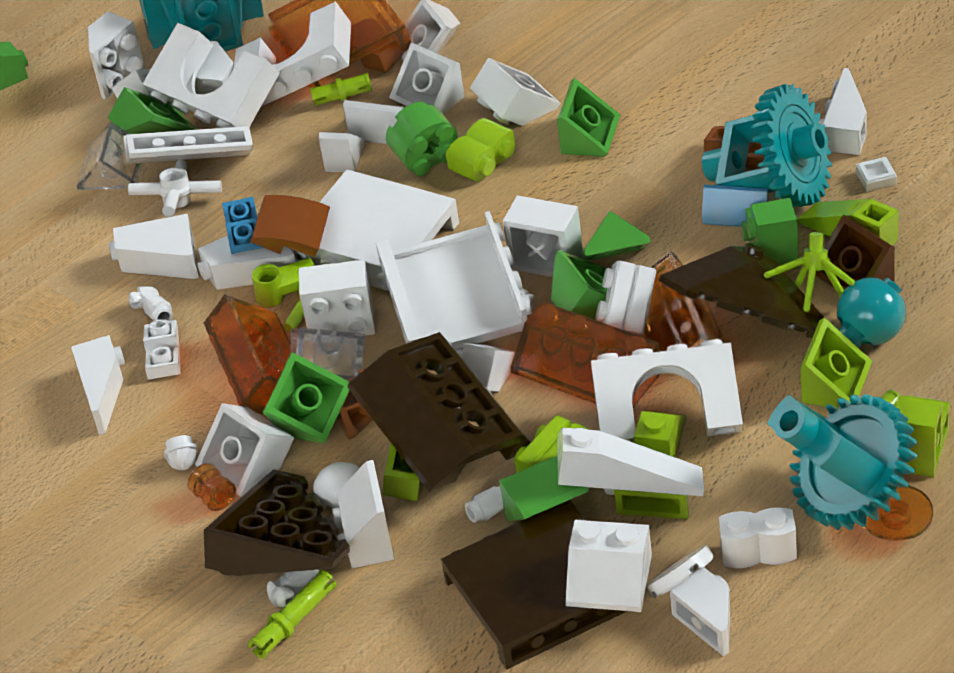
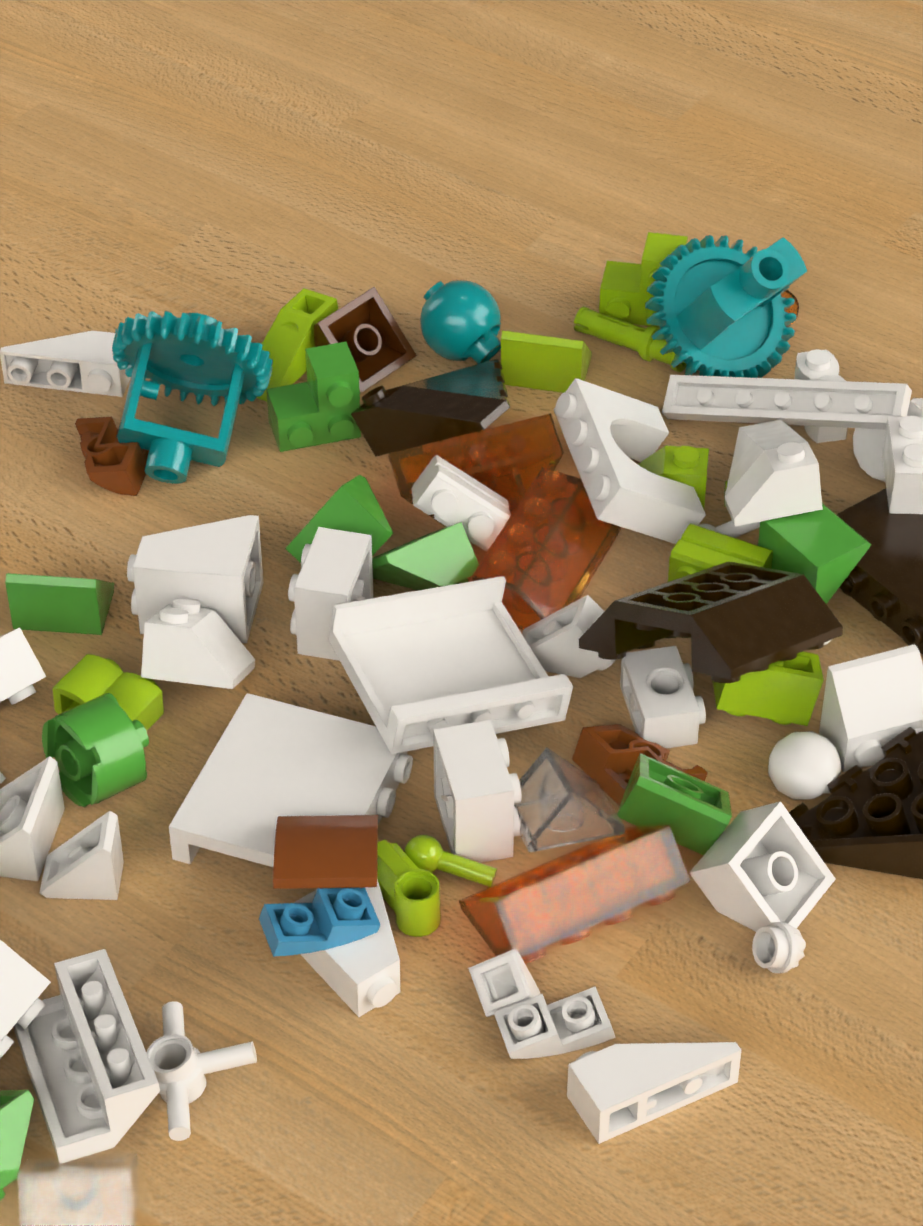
camera: 105 degrees left, 0 degrees up
(152, 303) = (461, 1051): white arm -> none
(156, 248) = (326, 1063): white slope -> none
(191, 327) = (503, 982): none -> white slope
(215, 491) = (837, 900): clear orange wheel -> none
(502, 173) = (193, 647): none -> white slope
(568, 173) = (202, 563): none -> white slope
(719, 494) = (791, 400): none -> white plate
(727, 203) = (248, 451): dark azure slope -> none
(814, 260) = (405, 338): lime plant -> none

